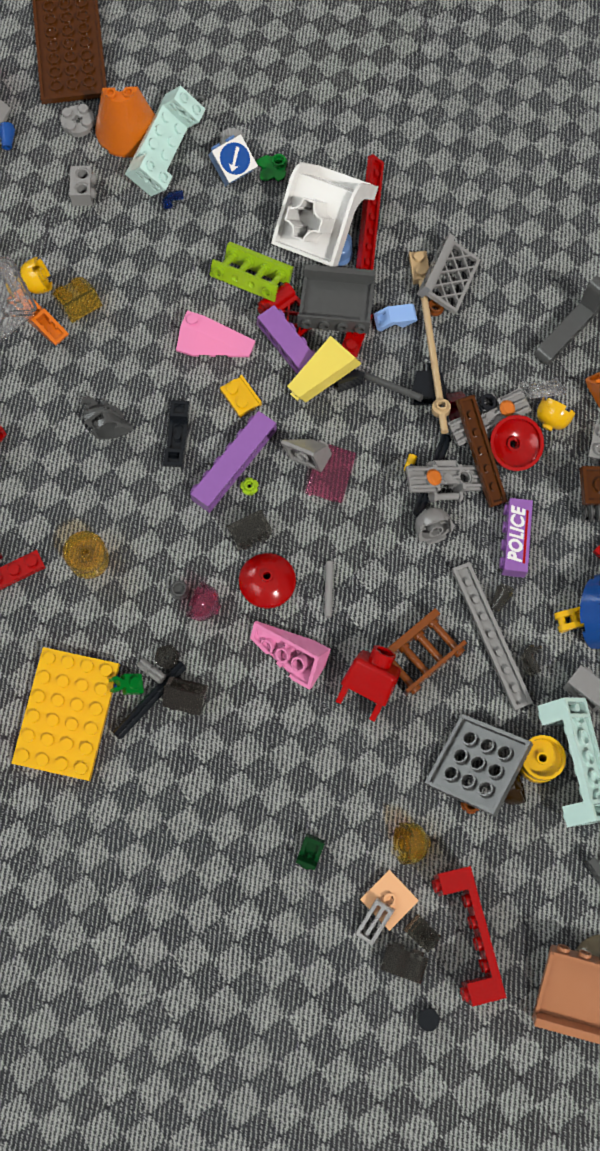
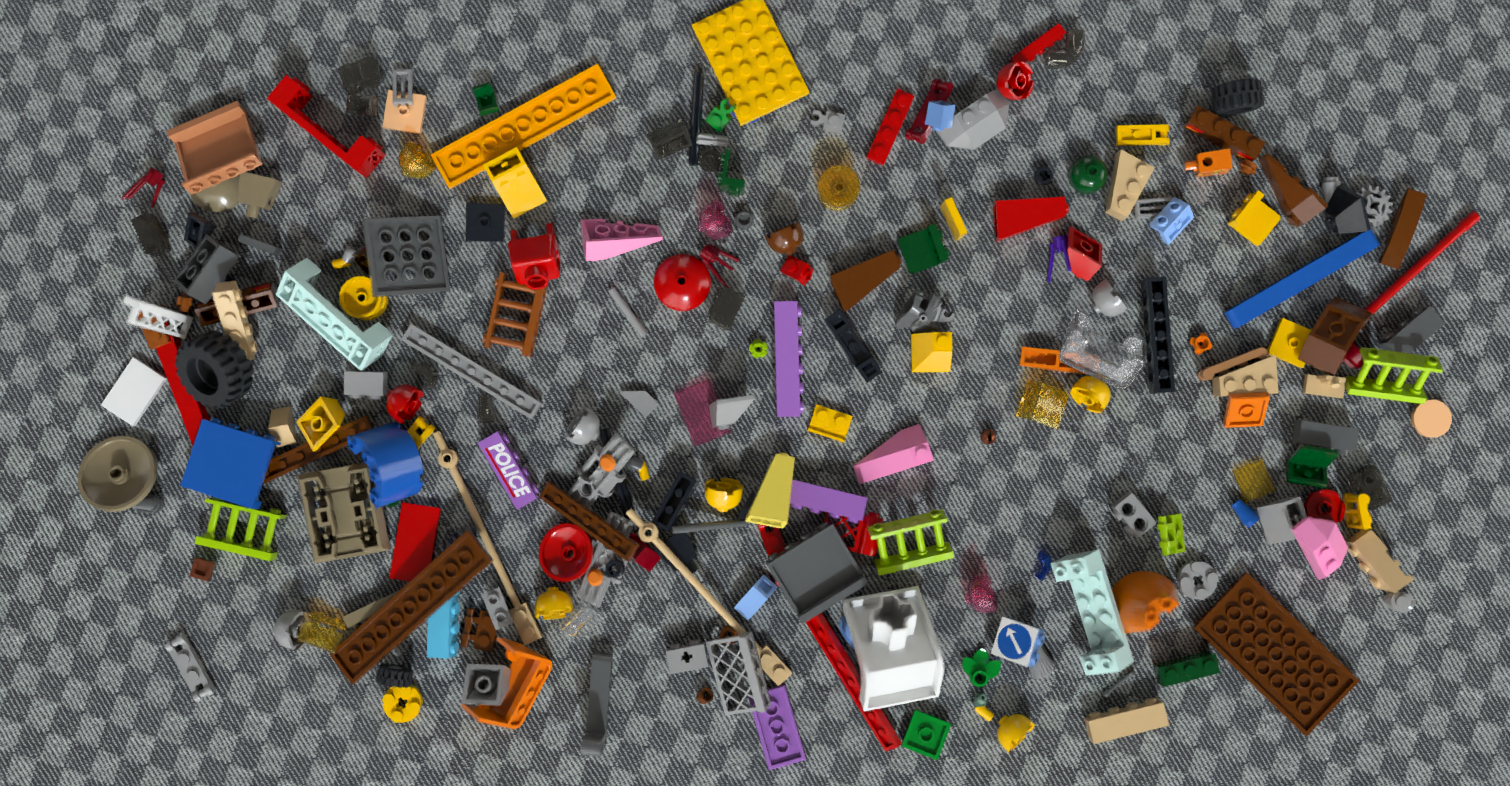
camera: 140 degrees right, 15 degrees up
(21, 465) = (953, 219): none -> yellow tile
(47, 615) = (831, 122): none -> light grey plate
(62, 464) = (923, 249): none -> dark green bracket
(67, 155) = (1171, 534): none -> lime plate
(122, 390) = (931, 352): none -> yellow slope
(130, 477) = (860, 280): none -> reddish brown slope
(135, 73) = (1186, 668): none -> dark green brick
(137, 307) = (984, 436): none -> copper hinge
(158, 548) = (786, 239): none -> reddish brown cylinder
(166, 630) = (732, 186): none -> dark green bracket
(171, 521) = (797, 270): none -> red bracket
(203, 71) = (1126, 721): none -> tan brick
(227, 582) = (710, 254): none -> dark red plant
(232, 206) = (981, 595): none -> clear pink cylinder
(284, 112) = (1013, 730): none -> yellow cylinder
(294, 145) = (980, 706): none -> arm
(296, 804) = (524, 125): none -> light orange plate
(340, 760) = (515, 182): none -> yellow slope
(346, 153) = (926, 734): none -> green plate
(360, 401) = (723, 494): none -> yellow cylinder
(371, 514) = (641, 401): none -> light grey tile
(390, 748) = (485, 222): none -> black plate
(402, 419) = (675, 501): none -> black brick
(428, 1019) = (317, 52): black tile -> none
(452, 217) = (778, 730): none -> medium lavender tile
(478, 312) = (680, 664): none -> light grey brick
(486, 280) = (704, 700): none -> reddish brown hinge
(532, 807) = (346, 260): none -> arm
(567, 650) = (403, 402): none -> red cylinder
(573, 926) = (257, 192): none -> dark tan torso
(583, 431) = (521, 613): none -> tan bar

